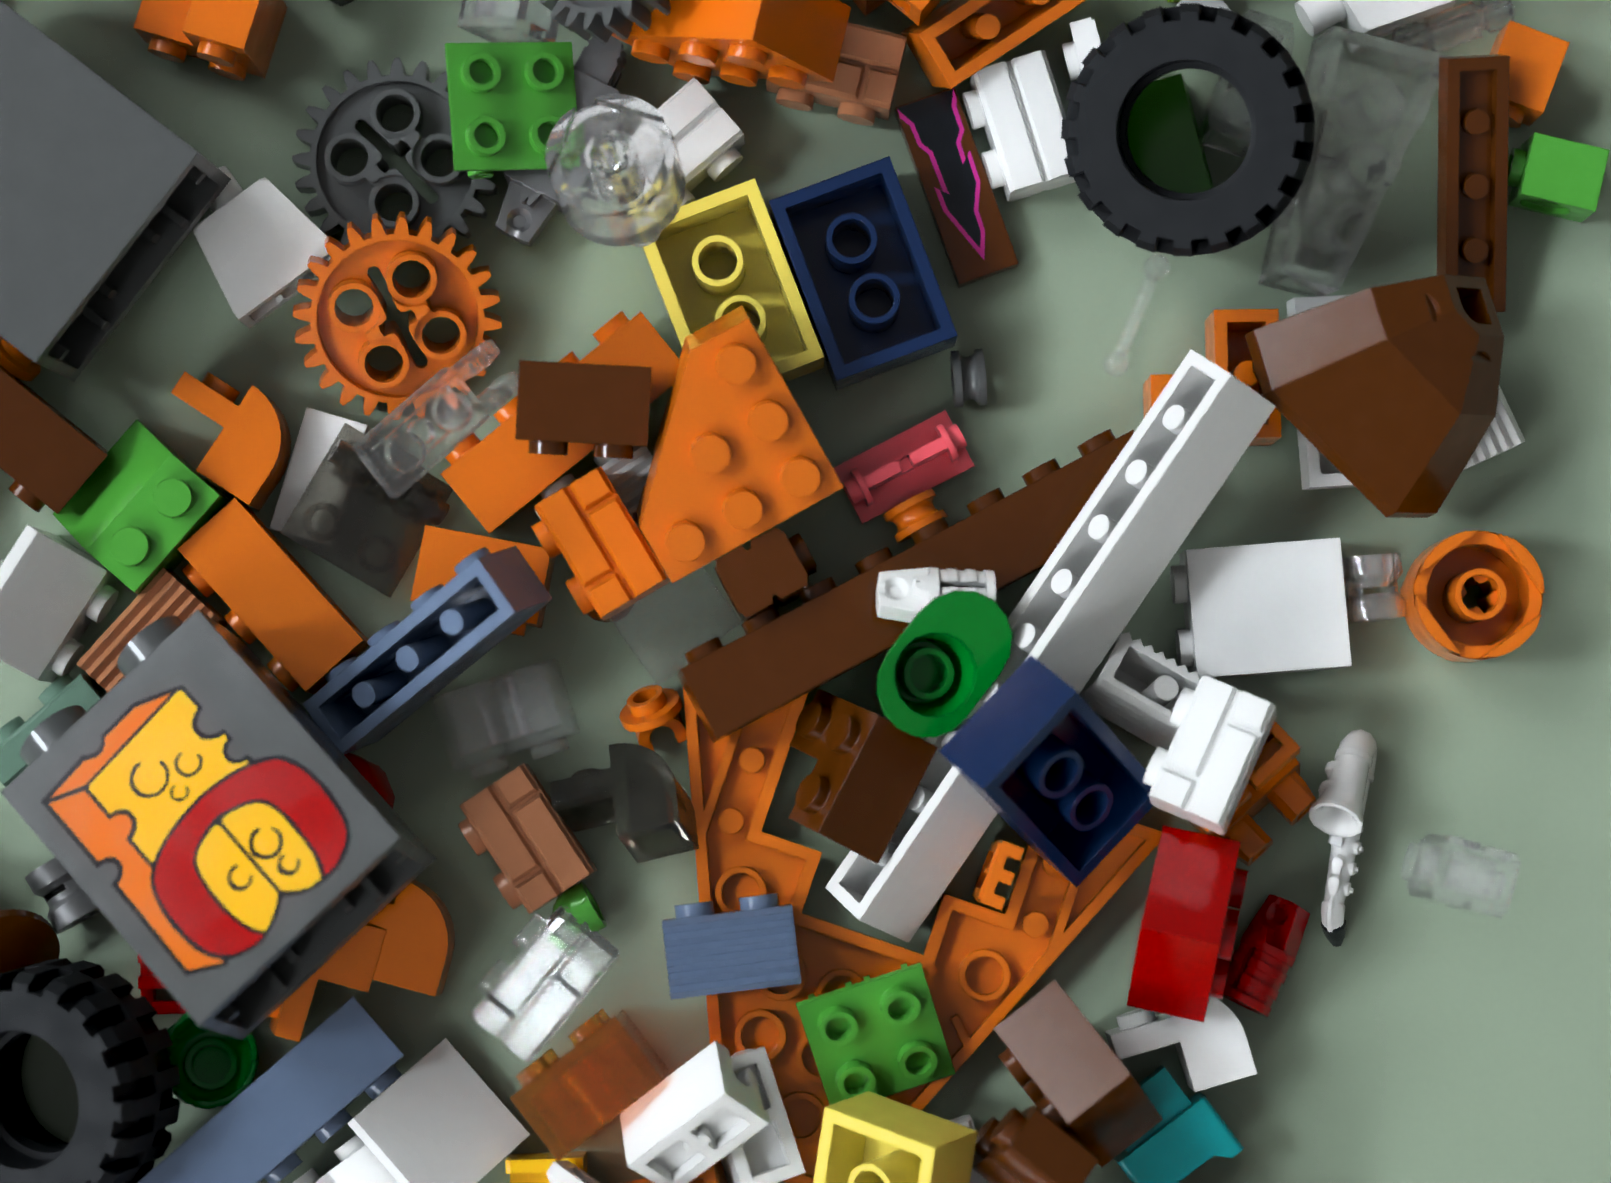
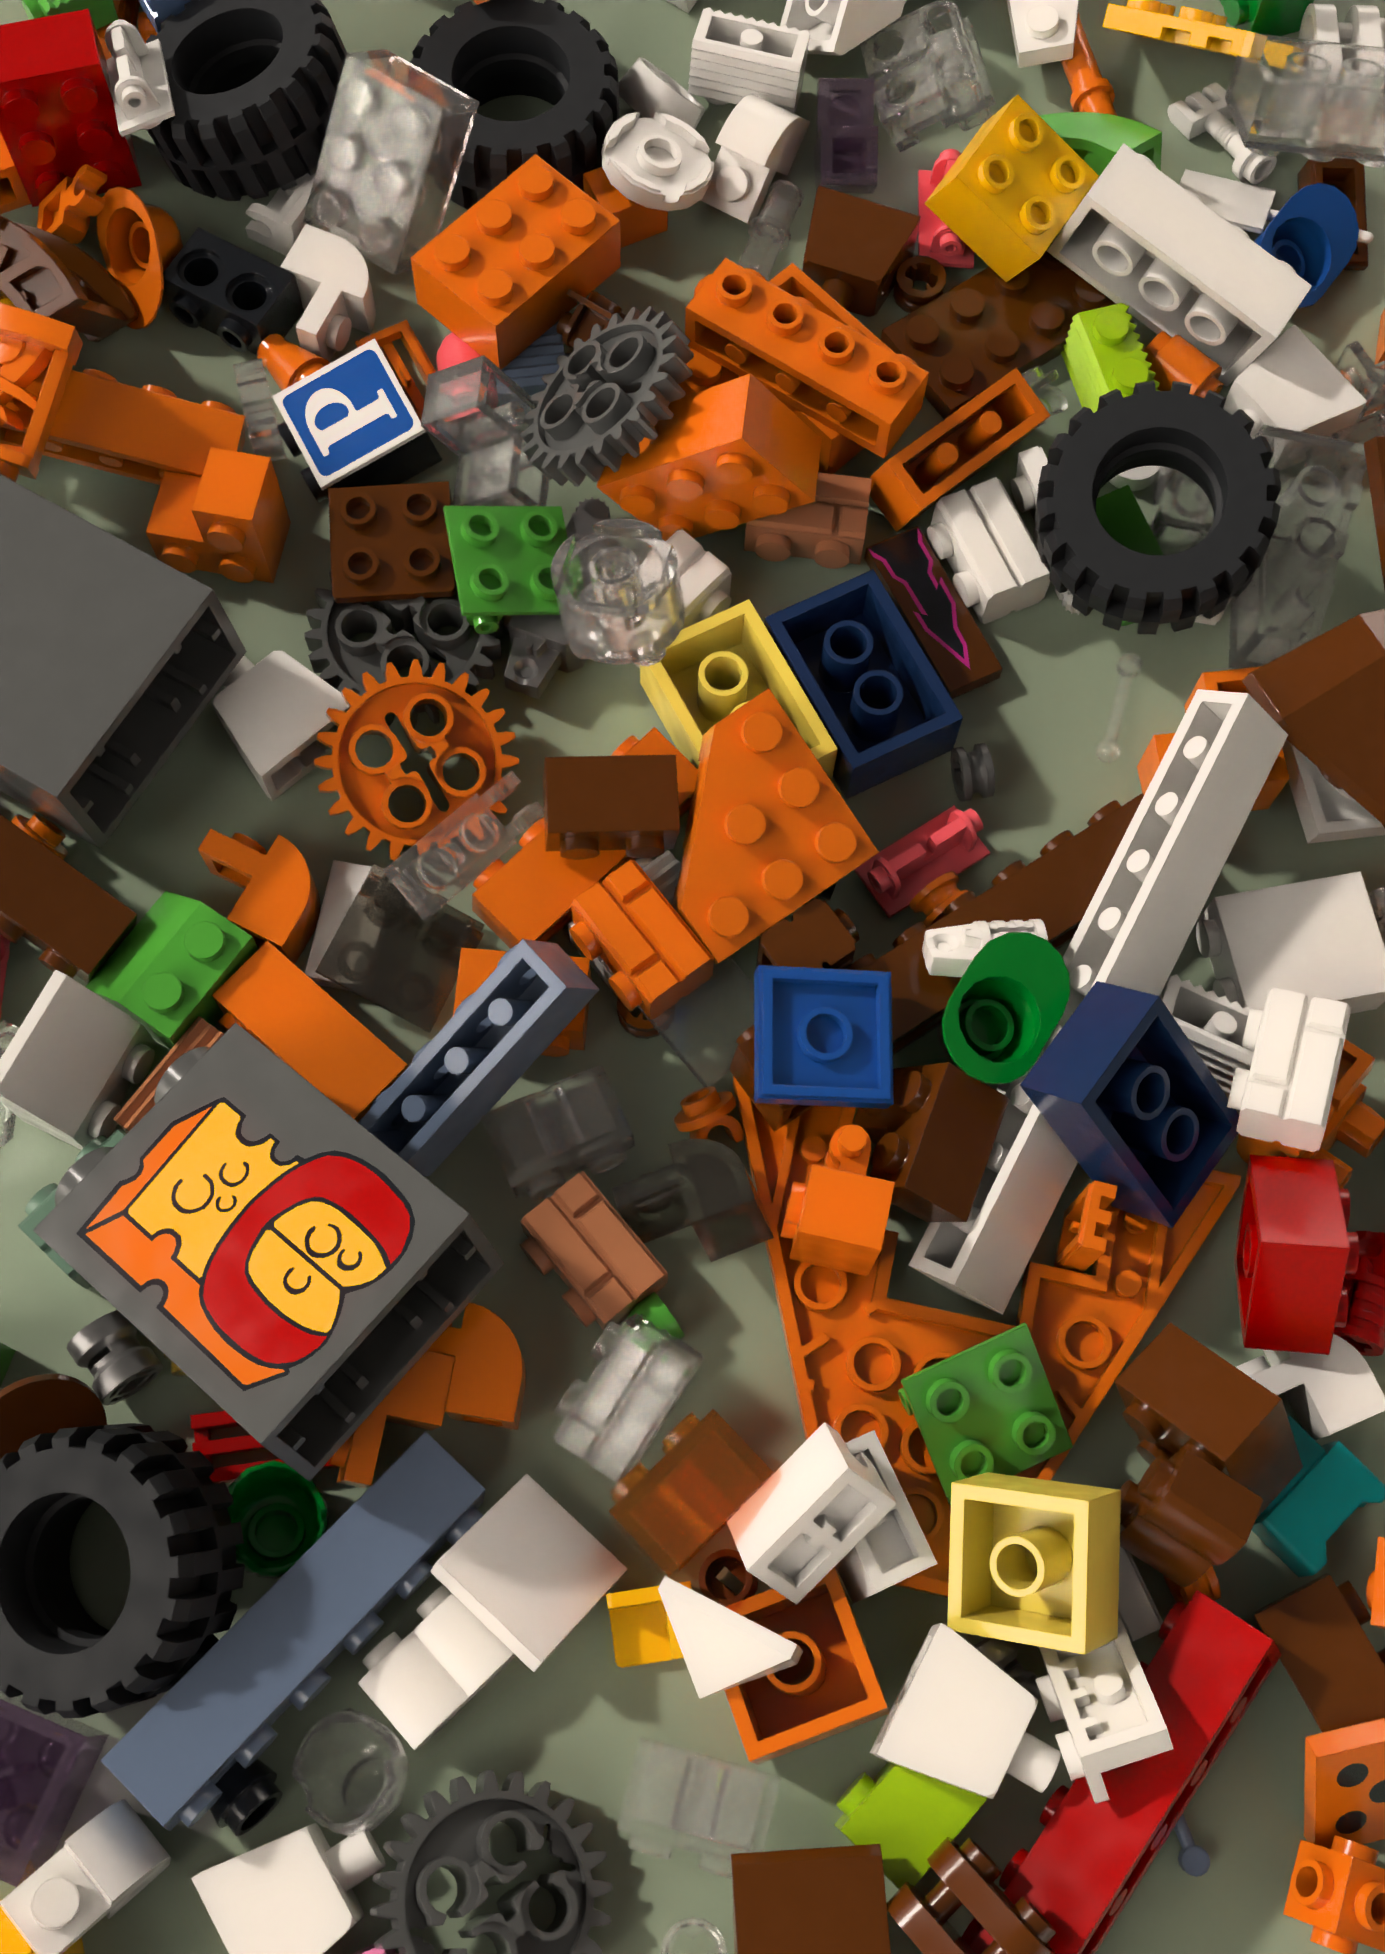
camera: 10 degrees left, 15 degrees down
(388, 65) = (390, 542): none -> reddish brown bracket
(608, 1162) = (714, 1588): none -> reddish brown hinge
(731, 949) = (823, 1334): sand blue brick -> none
(758, 844) = (840, 1211): none -> orange brick
(762, 673) = (823, 1037): none -> blue plate

